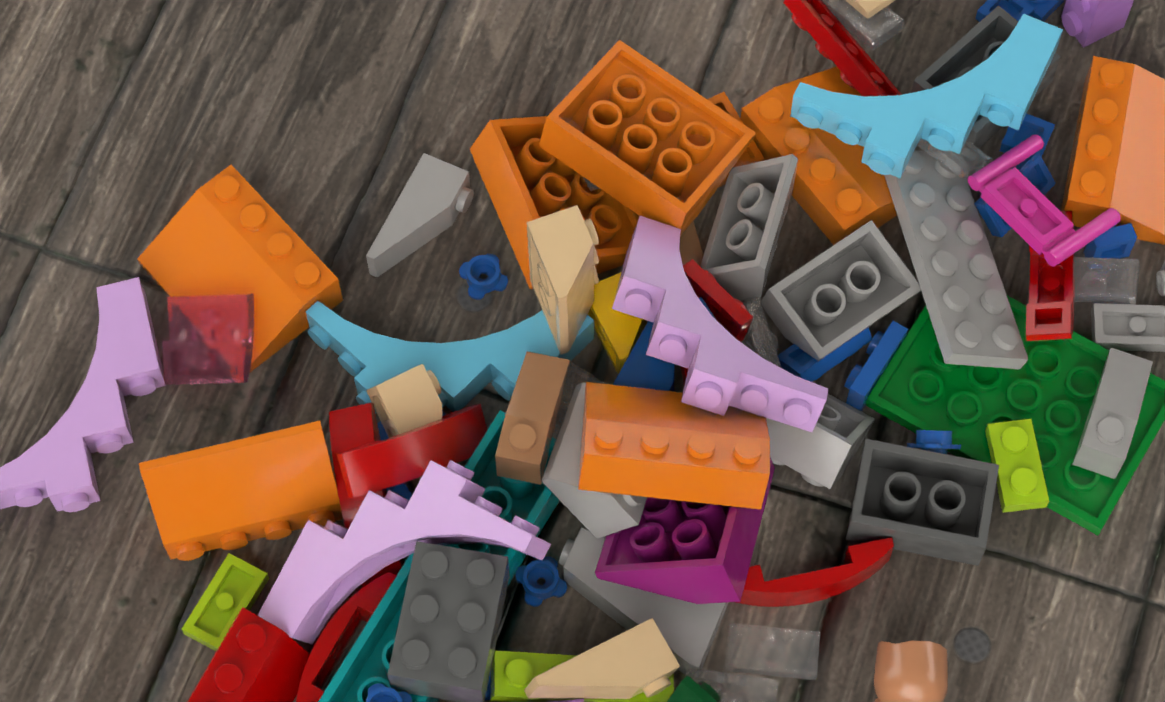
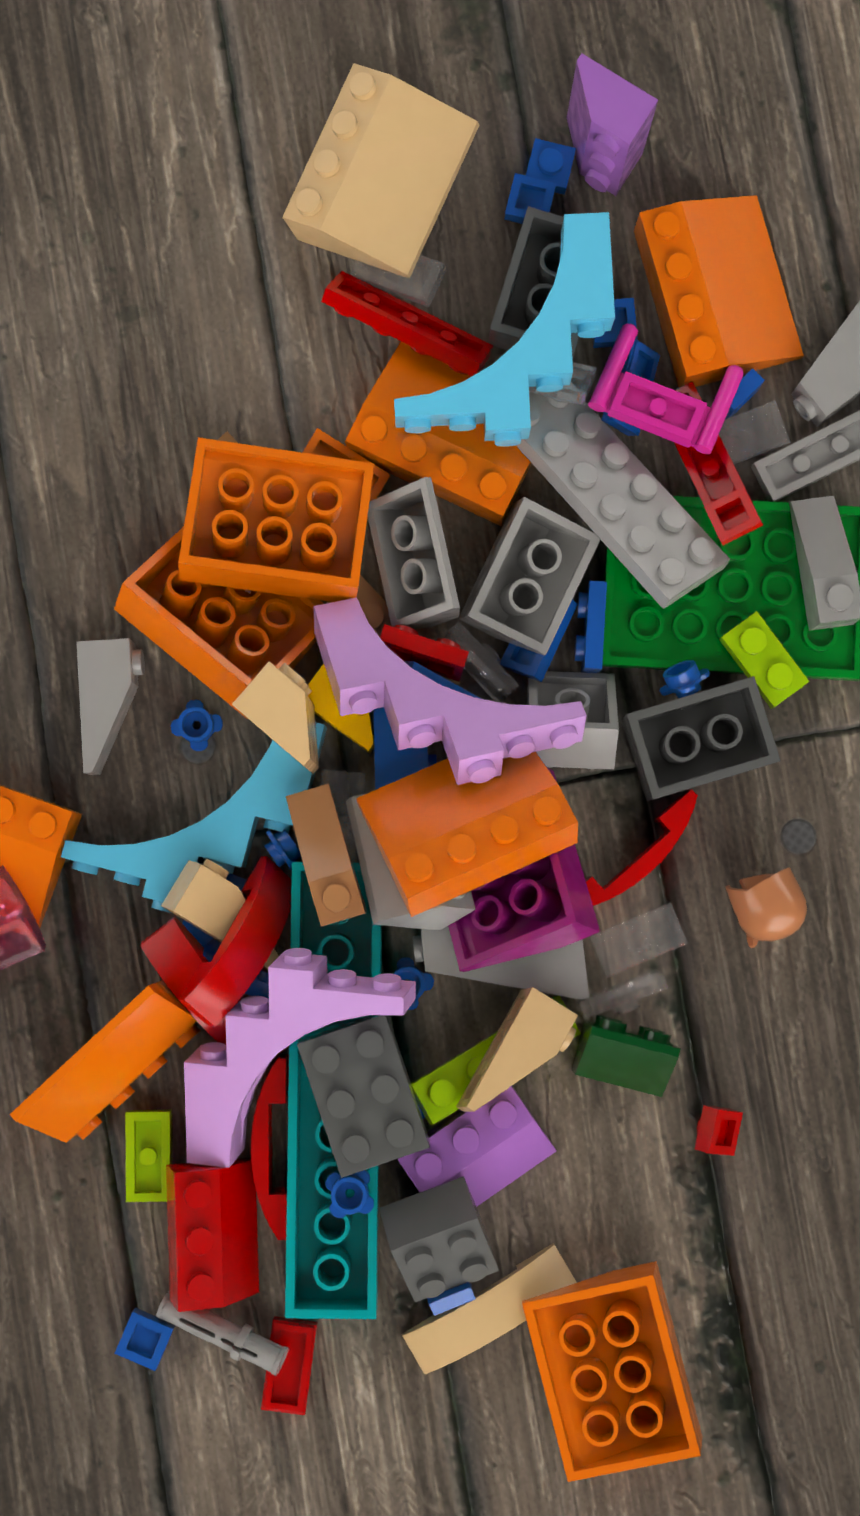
camera: 30 degrees left, 20 degrees up
(493, 404) = (282, 848): none -> blue plate

